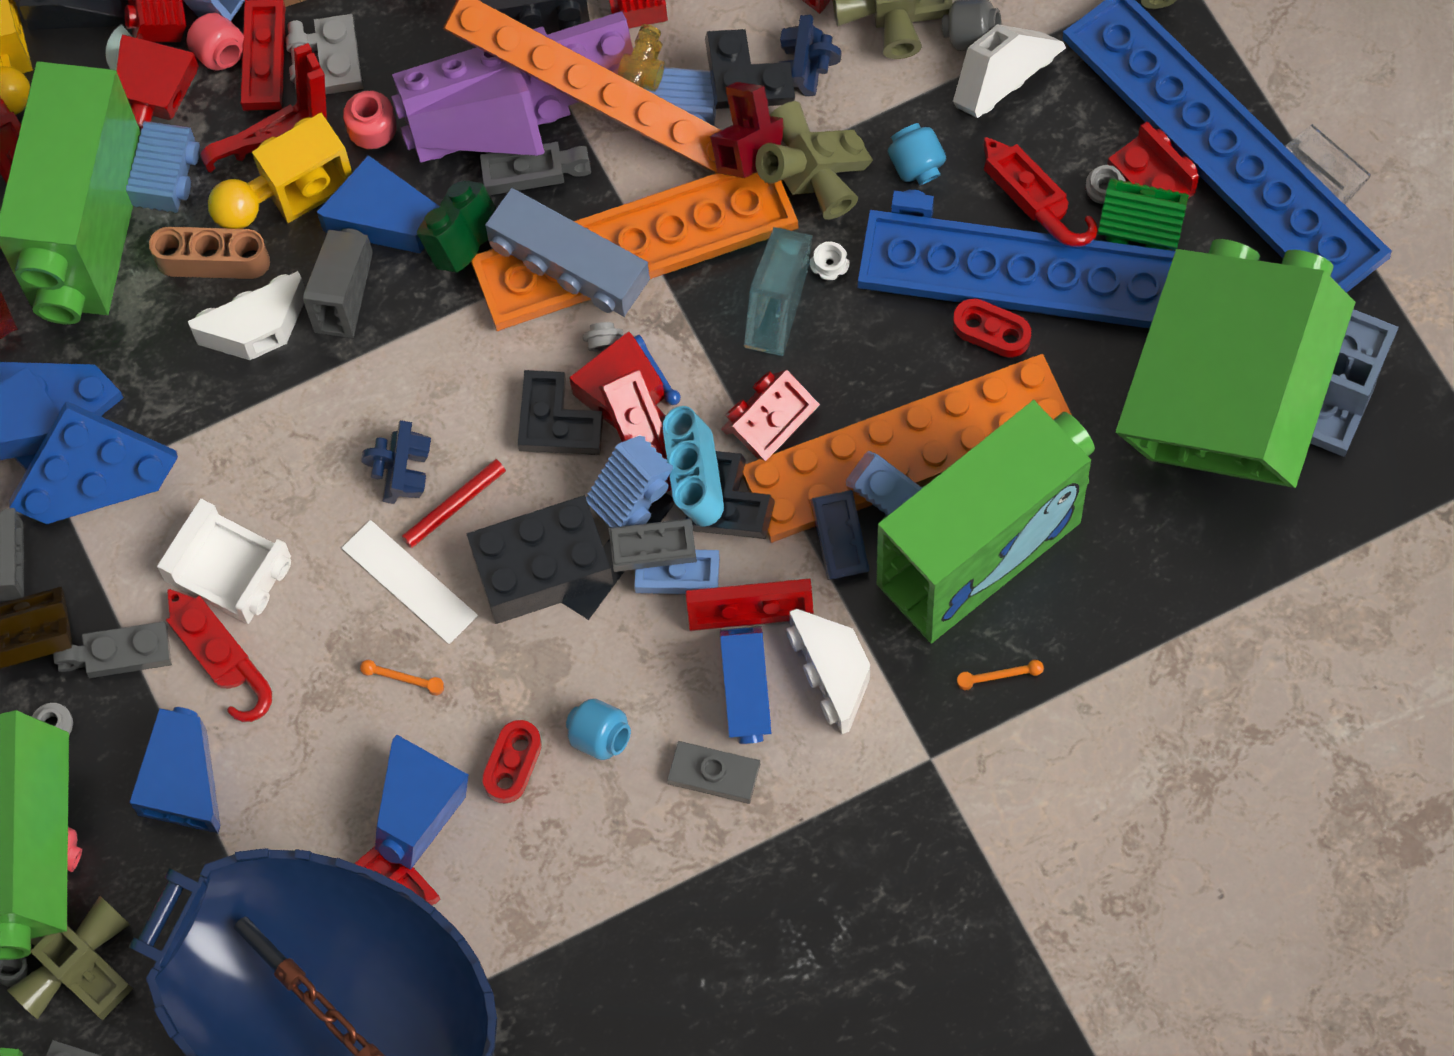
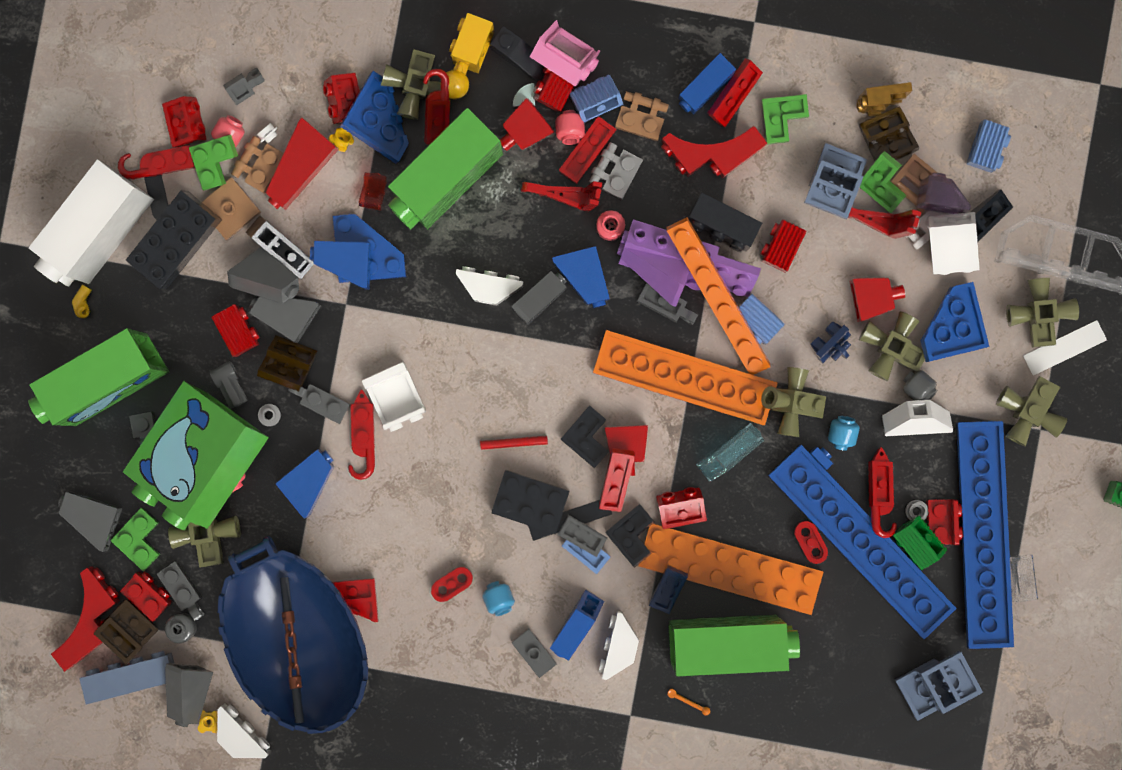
camera: 30 degrees right, 20 degrees up
(88, 467) = (365, 307): blue plate -> none
(162, 166) = (501, 175): medium blue brick -> none
(196, 241) = (486, 227): nougat beam -> none
(294, 171) = (552, 227): yellow brick -> none
(398, 479) = (500, 405): dark blue hips -> none
(409, 581) = (469, 463): white sticker -> none
(415, 801) = (395, 574): blue slope -> none
(434, 685) = (444, 521): orange hinge -> none
(458, 226) = (611, 313): dark green brick -> none
(567, 253) = (648, 366): sand blue brick -> none
(601, 336) = (636, 414): light grey plate -> none
(629, 483) = (592, 501): medium blue brick -> none
(642, 65) = (749, 301): clear yellow plate -> none
(672, 396) = (646, 464): blue hinge -> none
(695, 466) = (625, 502): medium azure beam -> none
(731, 63) = (789, 338): black plate -> none
(747, 604) = (605, 591): red plate -> none
(752, 127) = (773, 371): dark red brick -> none
(828, 251) = (771, 452): white plate -> none
(881, 483) = (704, 592): medium blue brick -> none
(1237, 363) = (897, 658): bright green brick -> none

